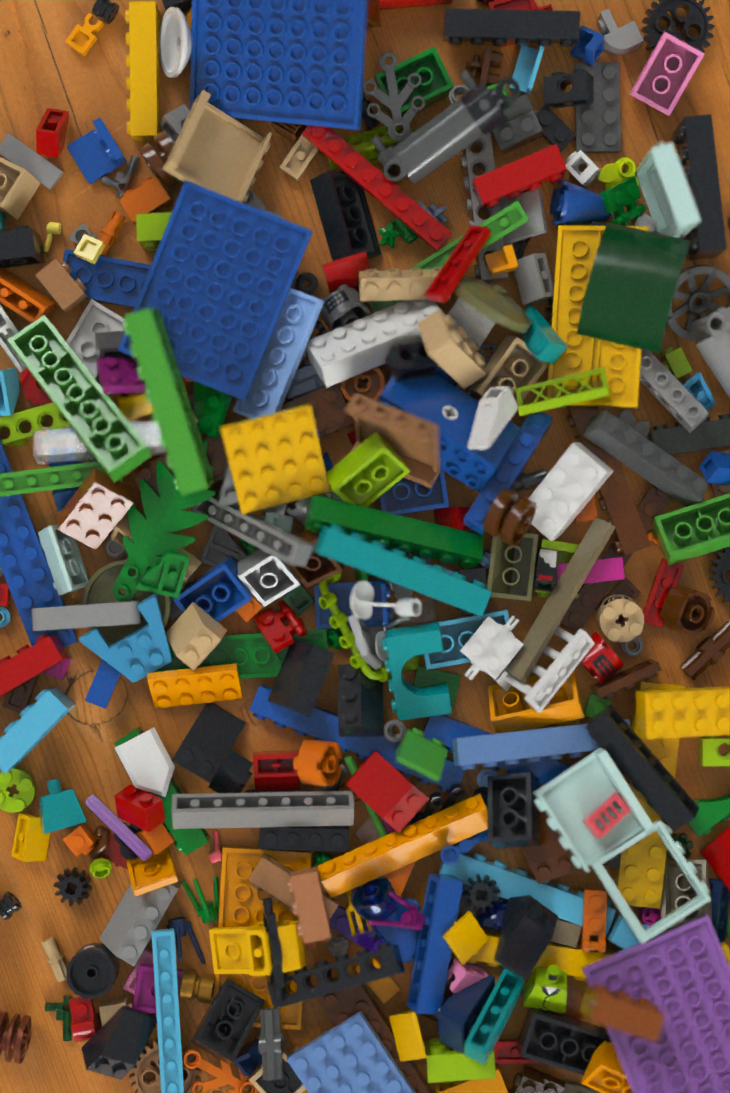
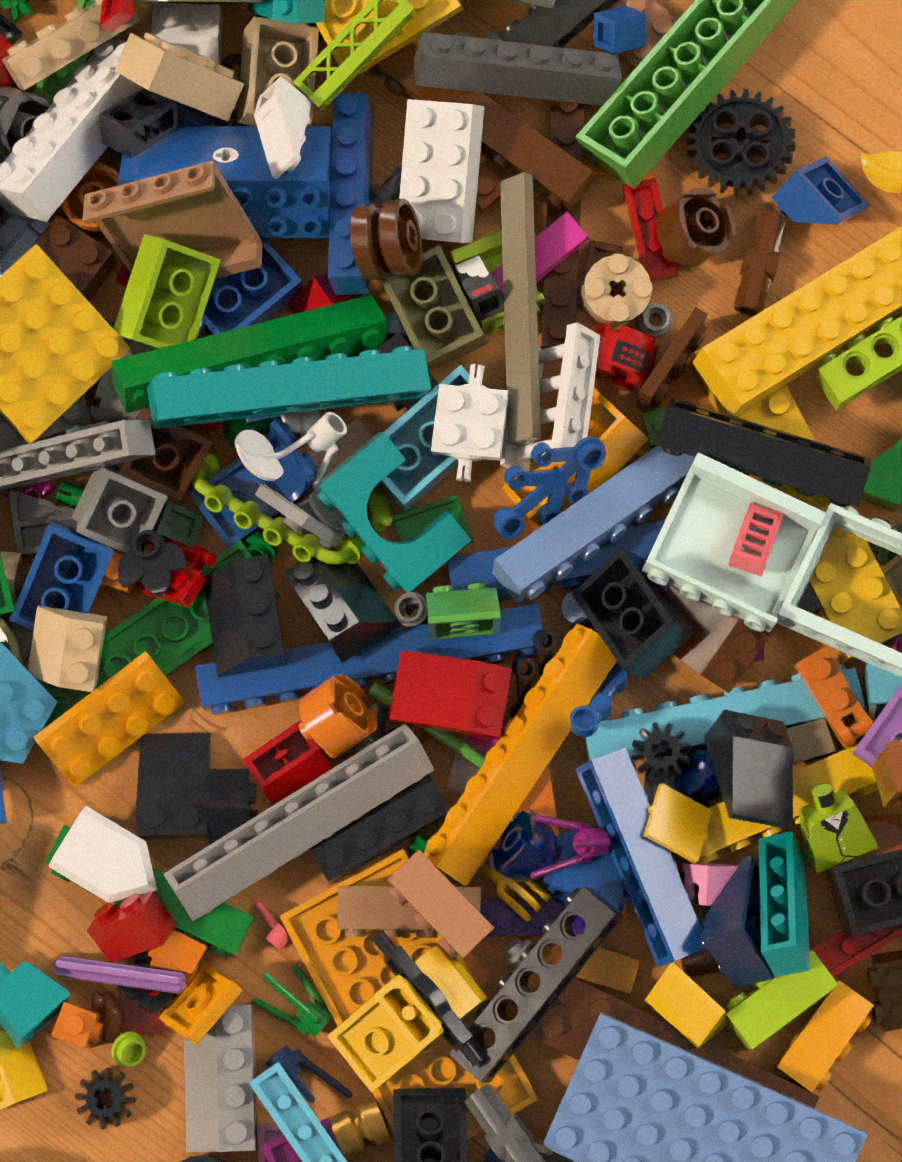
camera: 30 degrees left, 10 degrees down
(268, 620) = (150, 568): none -> black plate
(511, 716) = (582, 459): none -> blue plant

